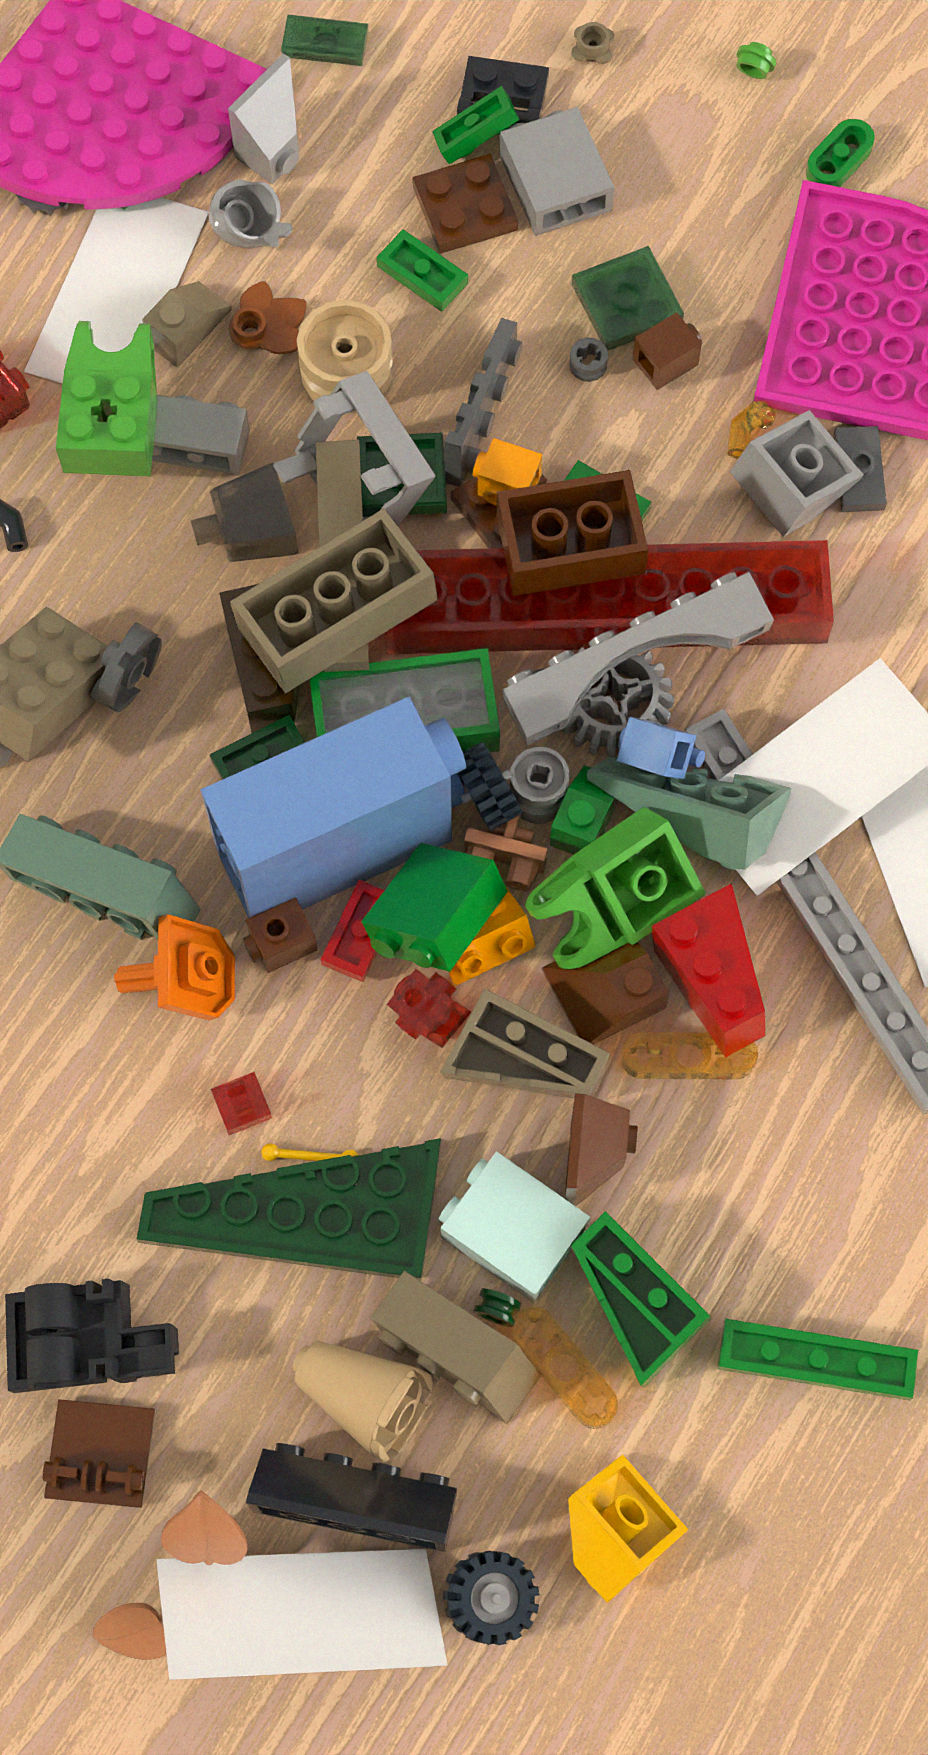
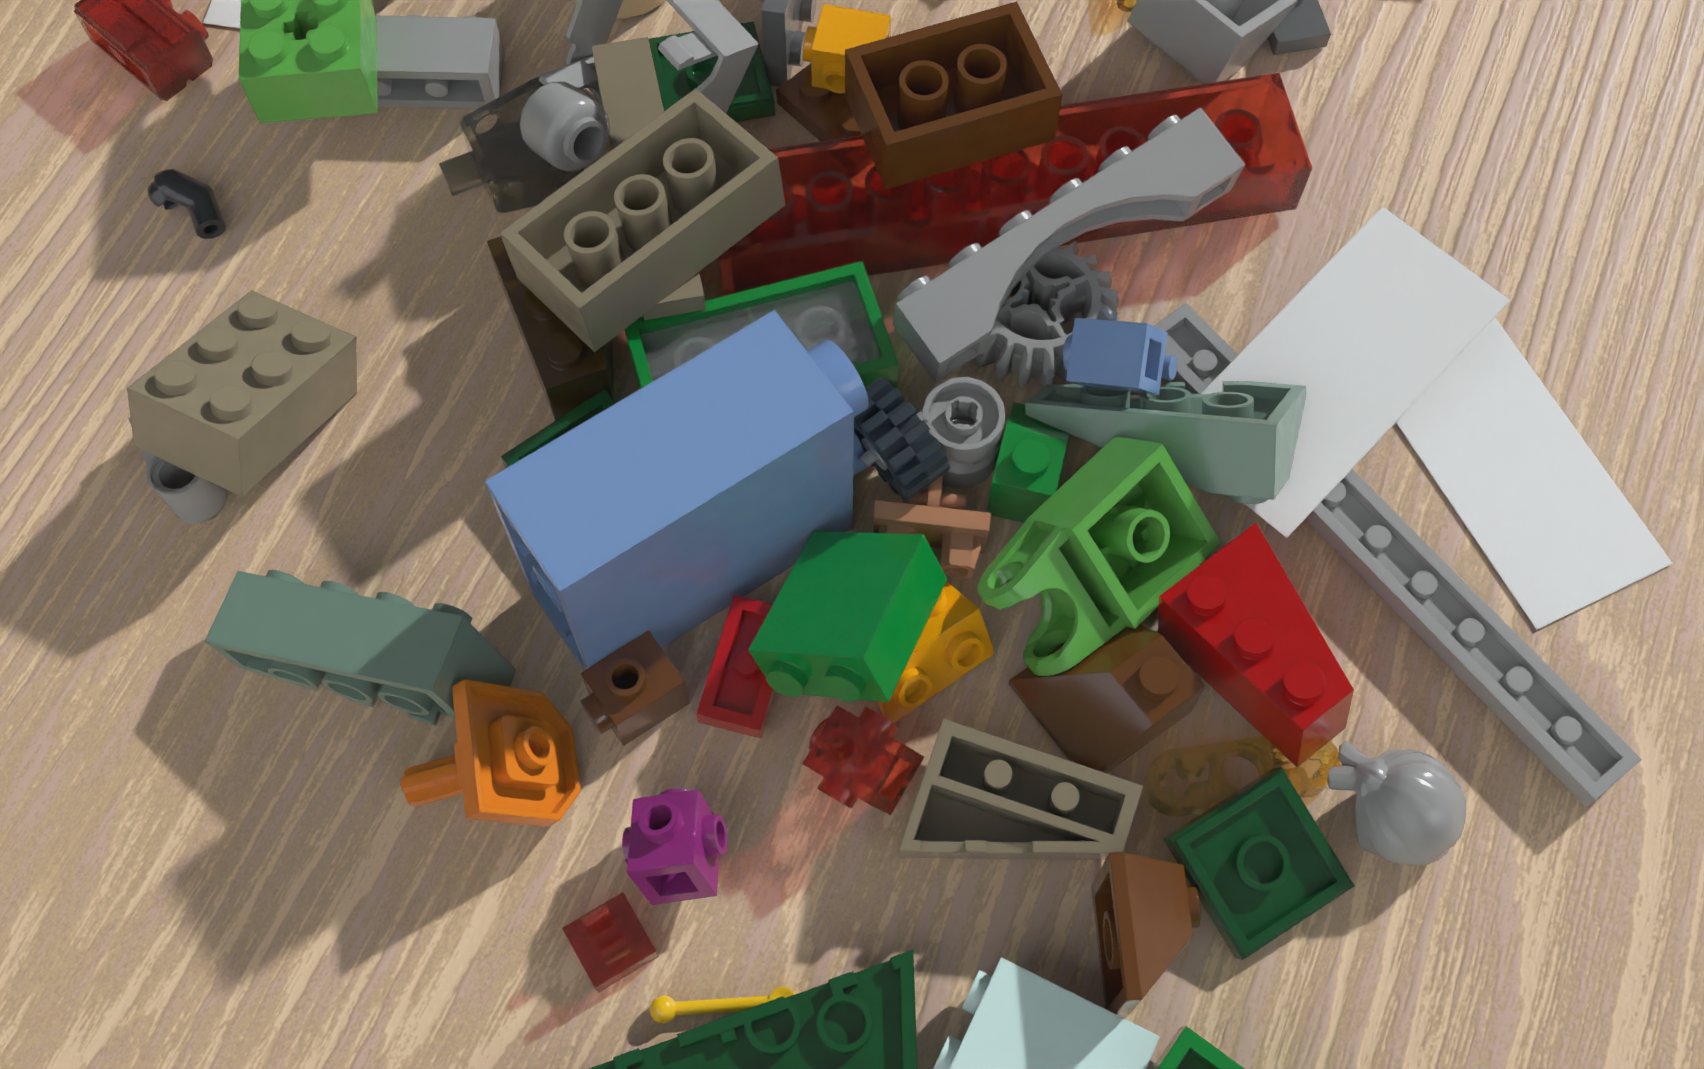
camera: 10 degrees left, 5 degrees down
(124, 667) = (368, 353): dark grey plate -> none
(287, 512) = (565, 126): none -> light grey head
(292, 1046) = (674, 846): none -> magenta brick
(685, 1117) = (1259, 863): none -> dark green plate
(793, 1092) = (1404, 803): none -> light grey hat

